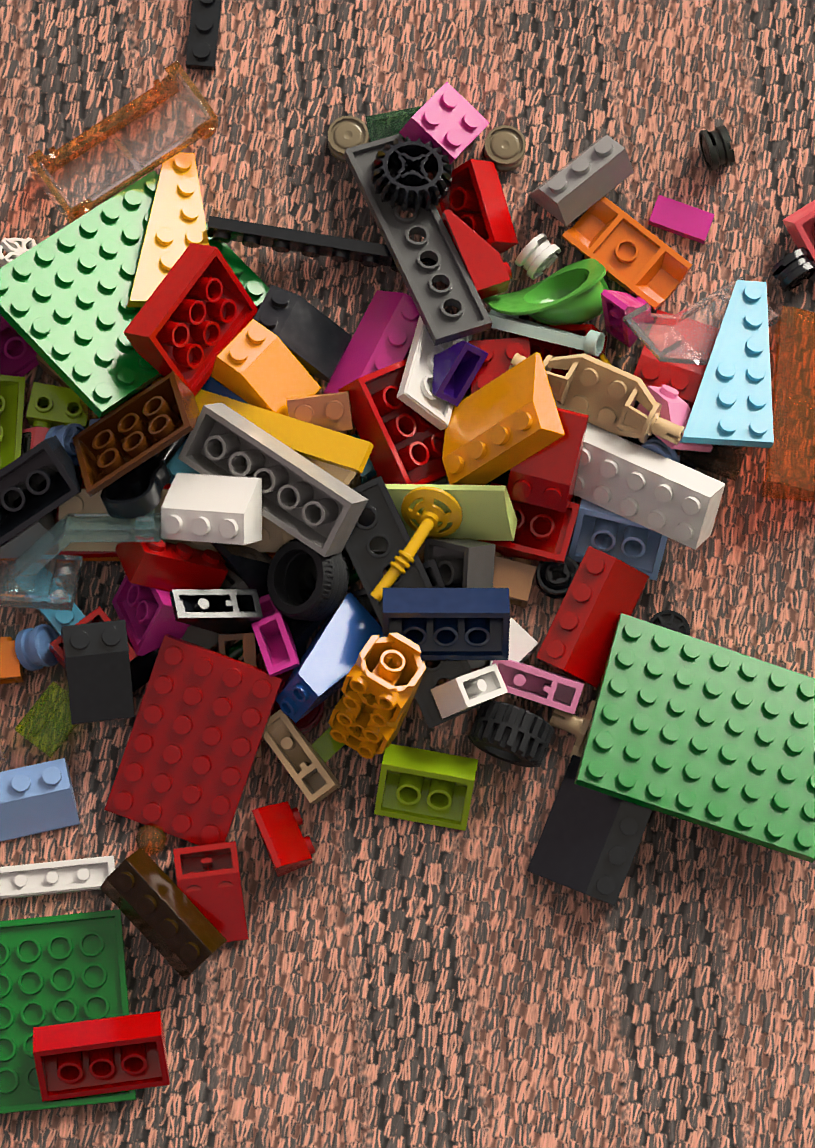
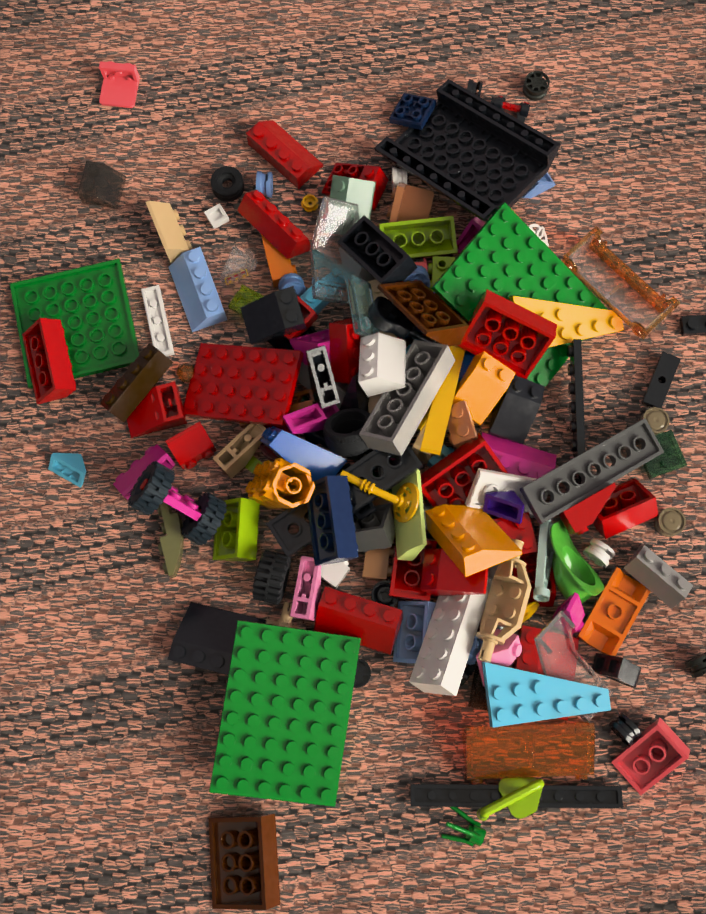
camera: 85 degrees right, 0 degrees up
(270, 106) = (664, 371): none -> black tile
(283, 1042) = (68, 466): none -> medium azure slope
(312, 919) = (126, 481): none -> dark pink slope
(358, 882) = (201, 516): none -> black plate
(411, 185) = (627, 460): black gear -> none
(435, 886) = (173, 543): none -> olive slope
(447, 122) = (674, 478): brick -> none
(469, 690) = (290, 543): white slope -> none
(681, 219) = (646, 647): dark pink tile -> none
(708, 265) = (616, 669): none -> black tile

